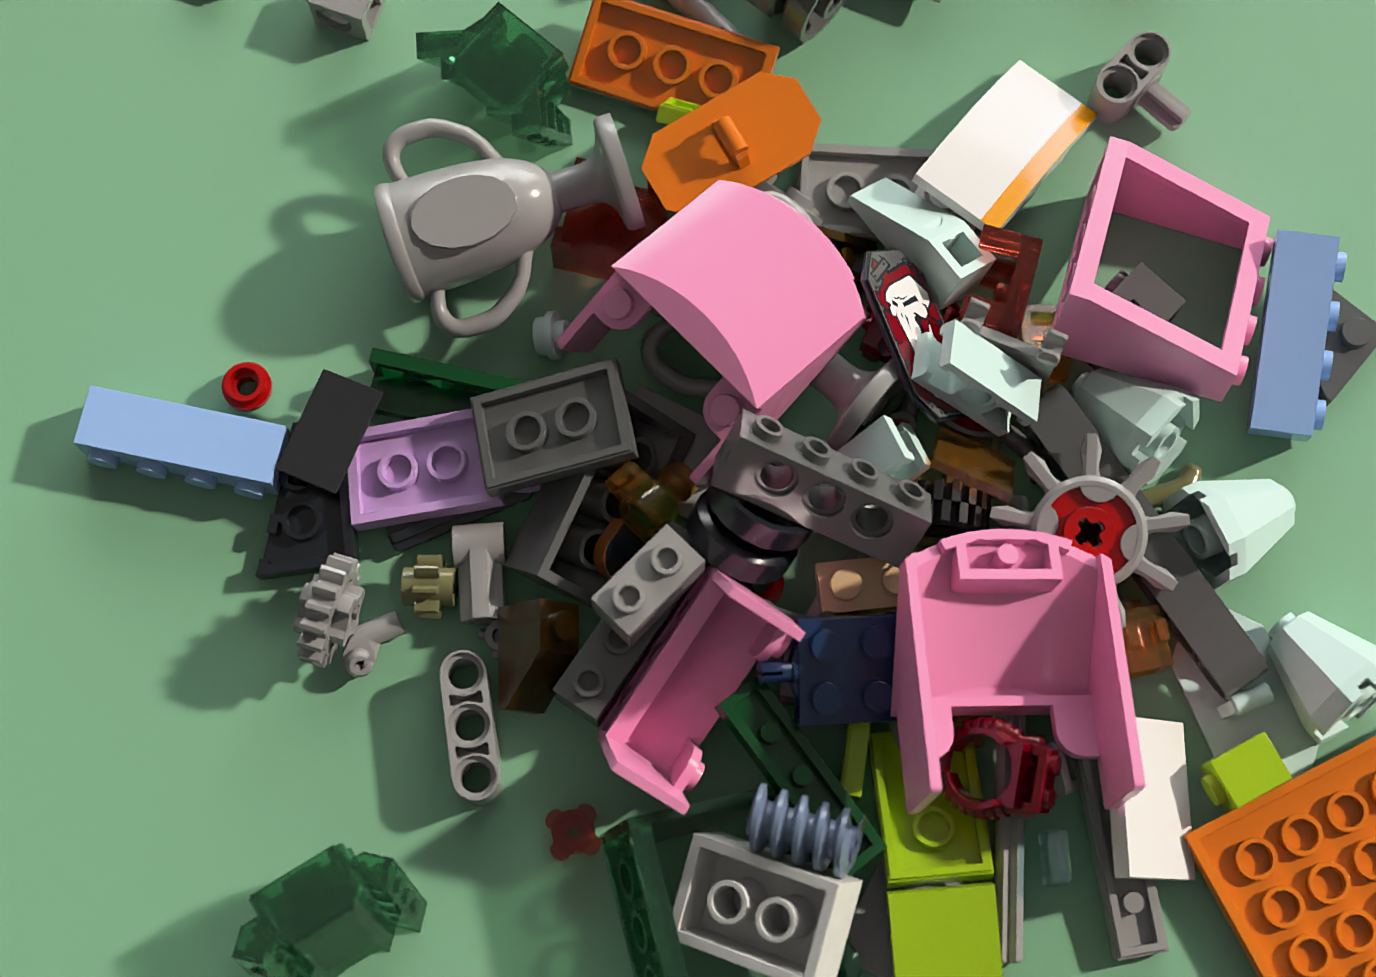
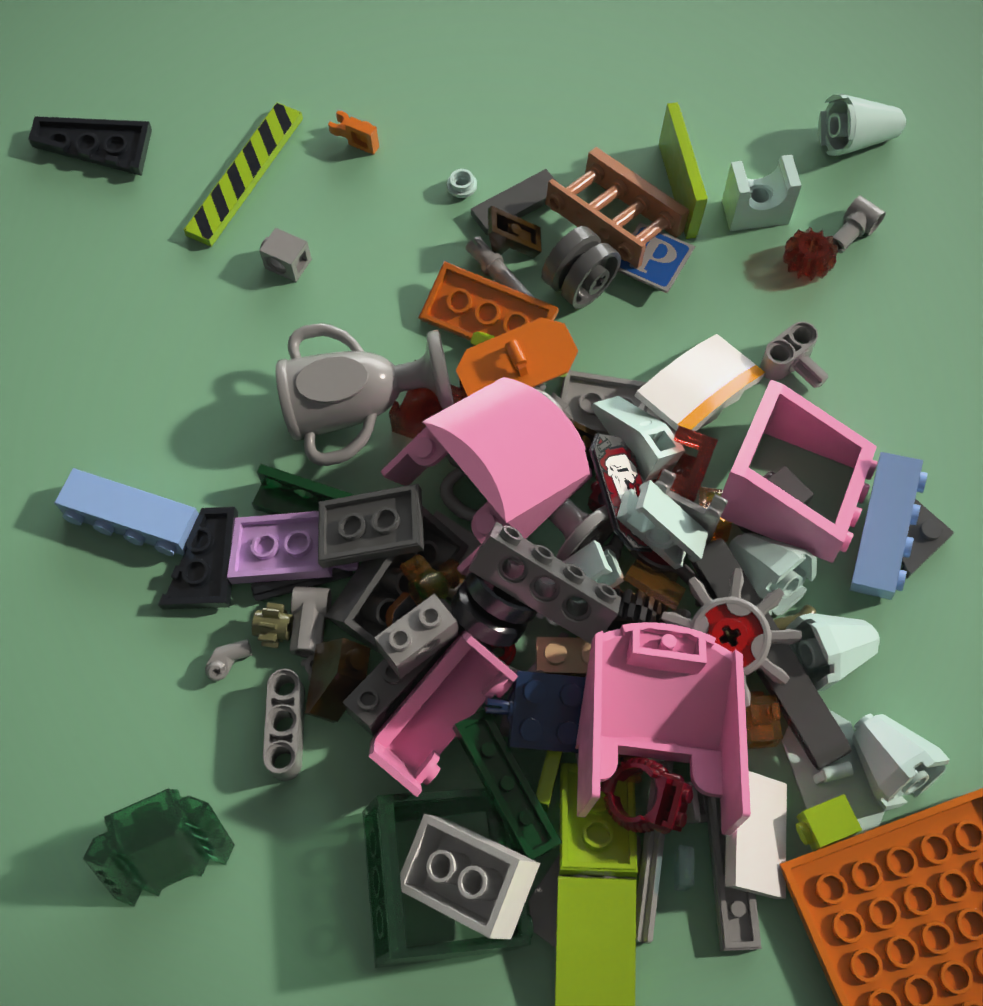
camera: 10 degrees right, 10 degrees down
(237, 376) = (174, 475): red plate -> none
(329, 431) = (223, 514): black piece -> none
(329, 610) = (200, 630): light grey gear -> none
(506, 70) = (380, 303): clear green slope -> none
(546, 332) = (375, 475): light aqua plate -> none
(584, 842) = (338, 797): clear red plate -> none
(804, 832) = (501, 822): sand blue piece -> none

